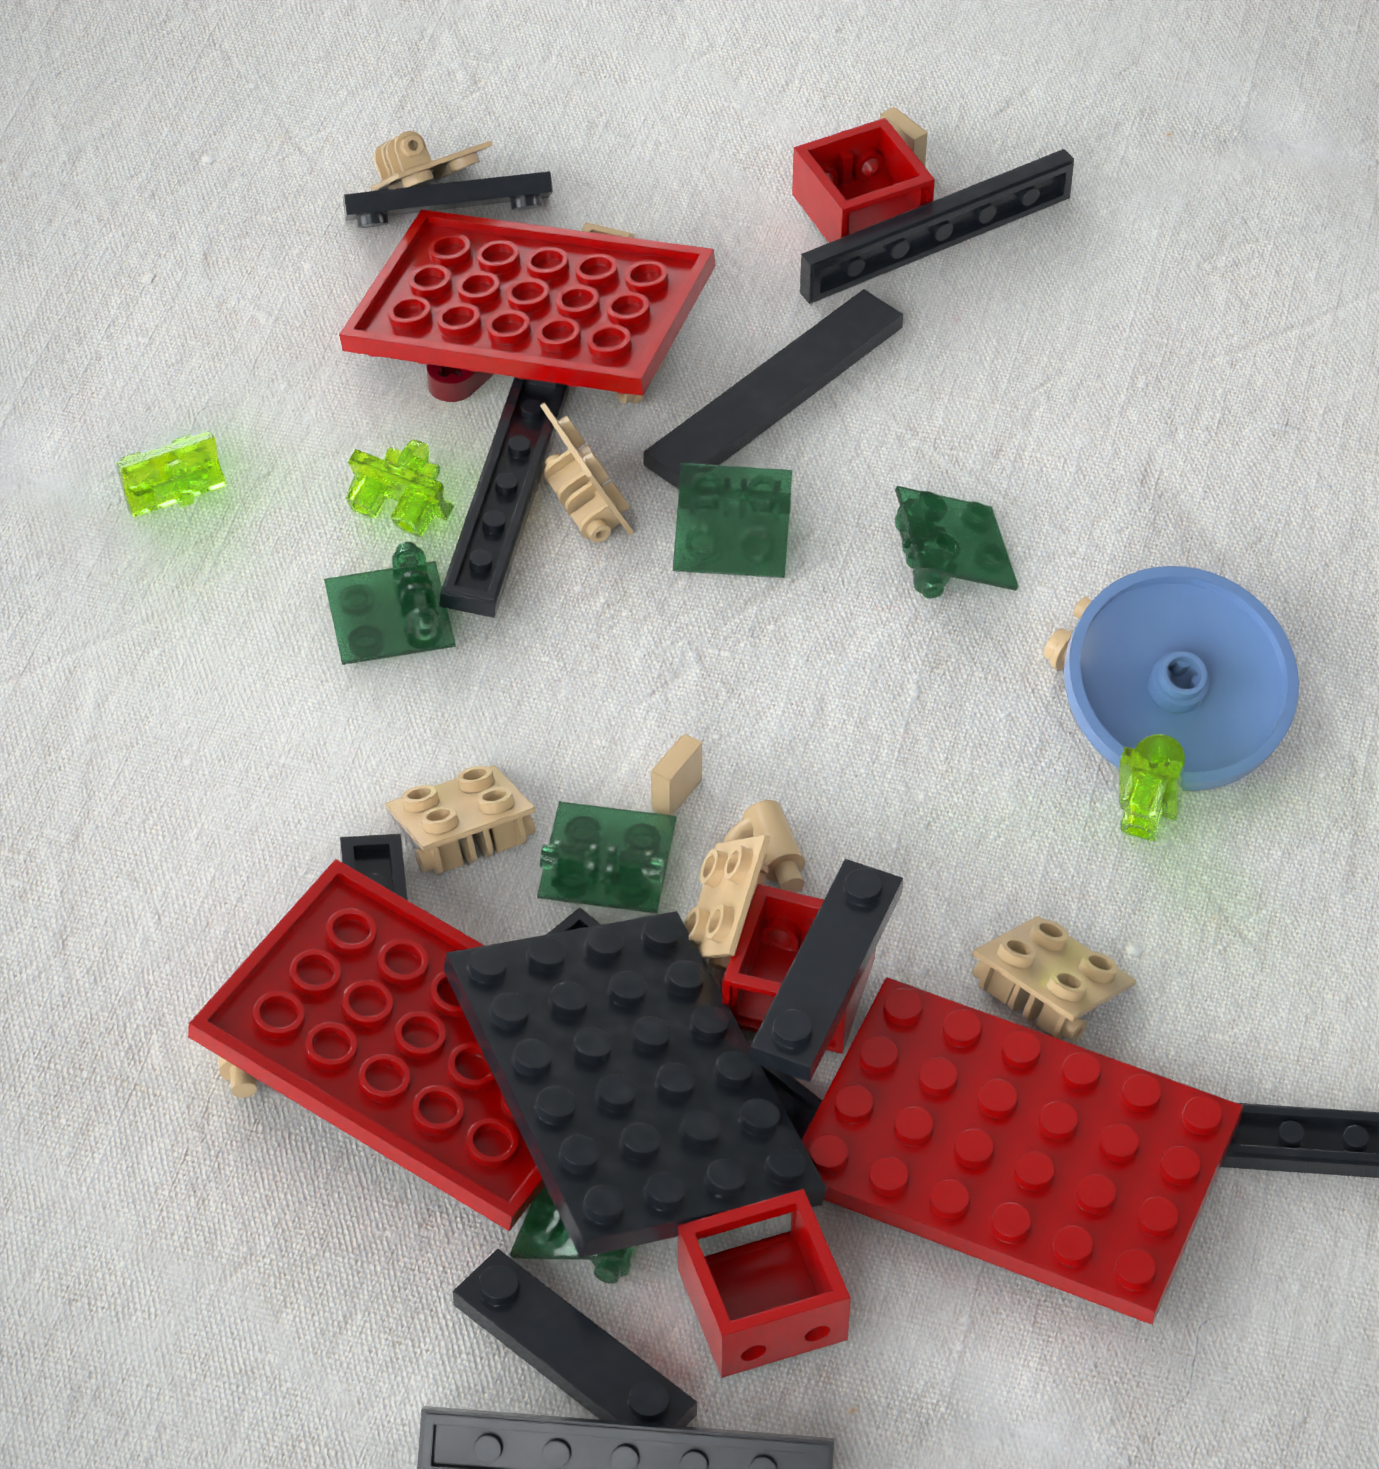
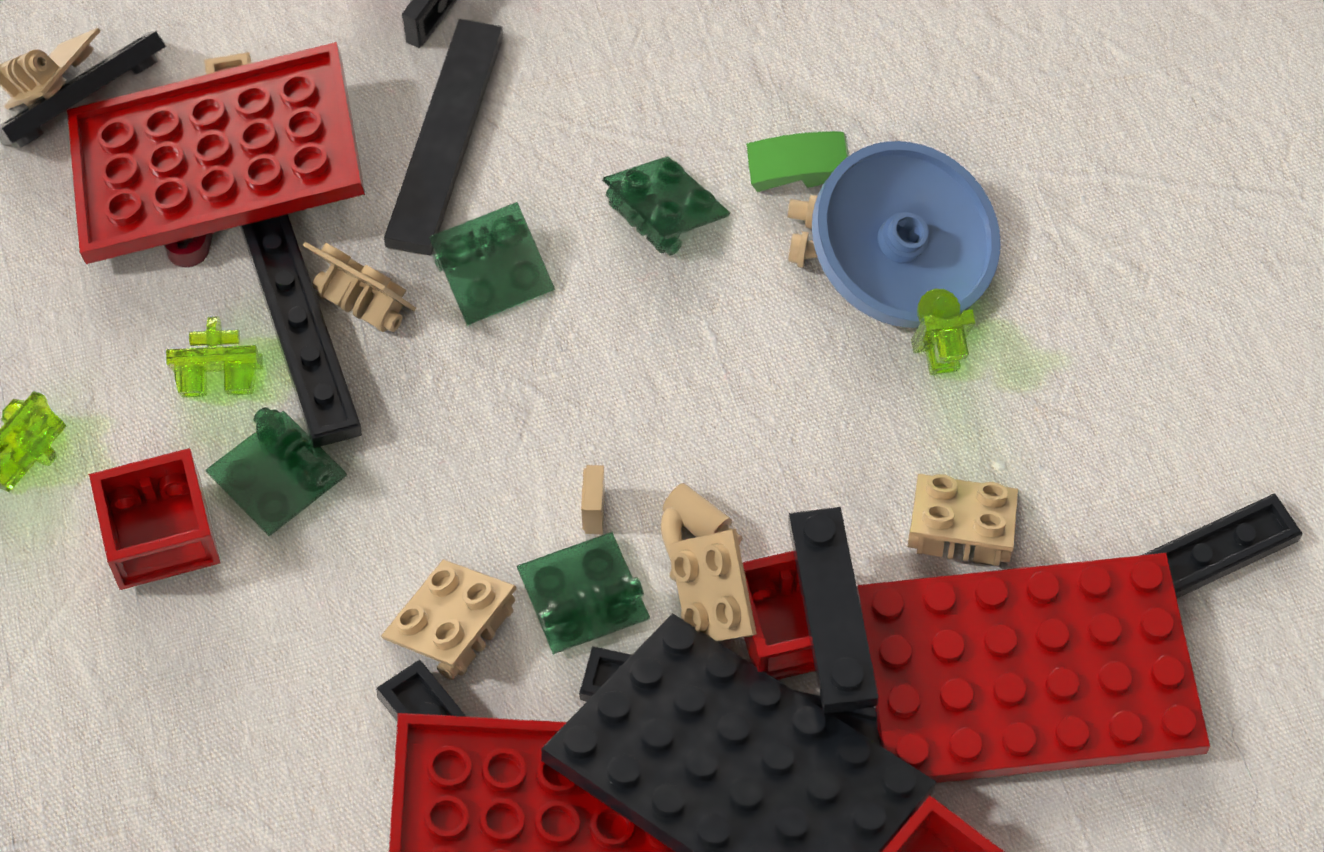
camera: 30 degrees left, 10 degrees up
(239, 591) = (154, 519): none -> red piece
(1107, 555) = (795, 158): none -> bright green slope

